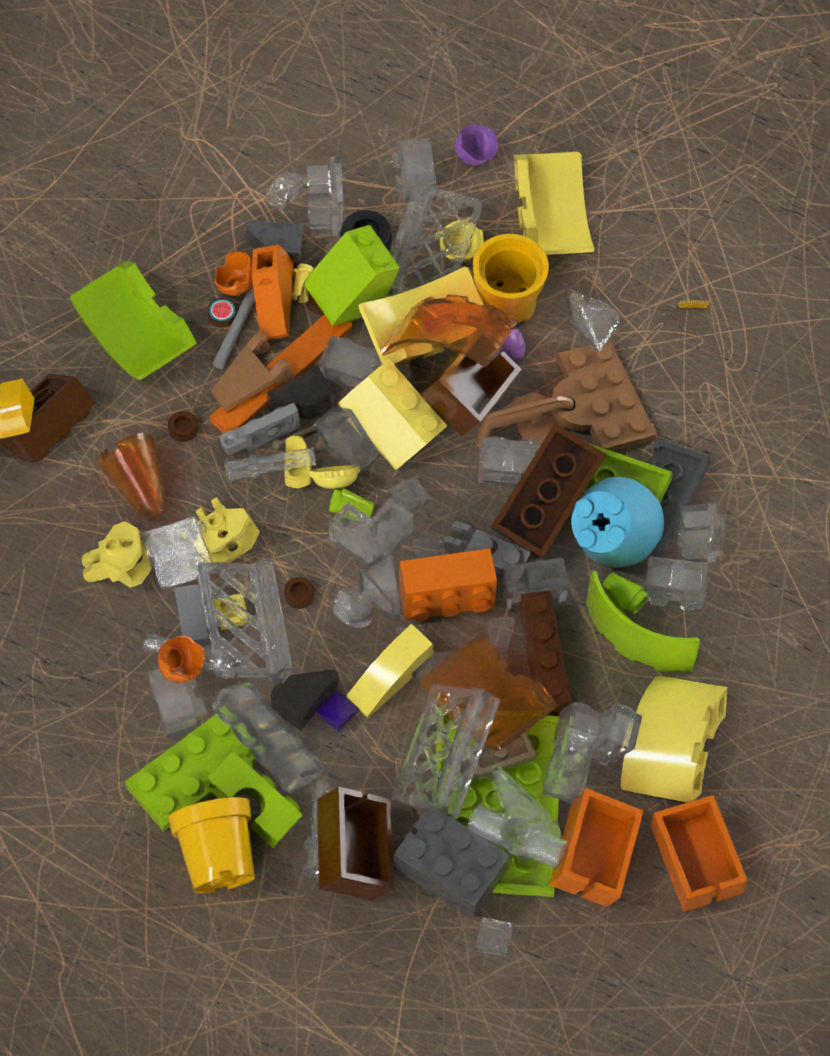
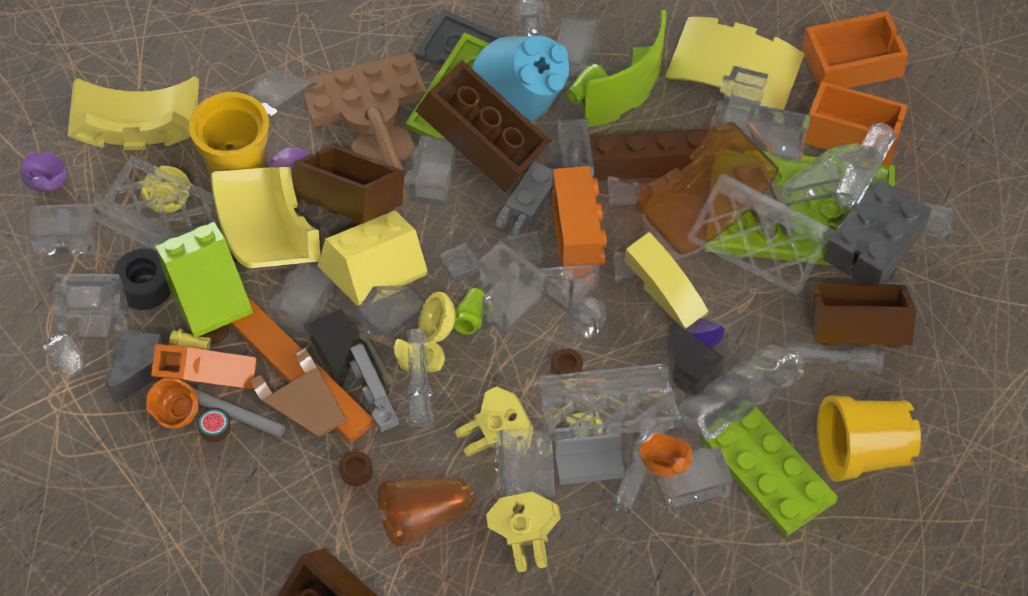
camera: 85 degrees left, 5 degrees down
(130, 323) = (224, 511): lime panel -> none
(236, 777) = (793, 418): lime arch -> none
(455, 324) = (294, 185): clear orange panel -> none
(682, 305) = (261, 15): yellow leg -> none

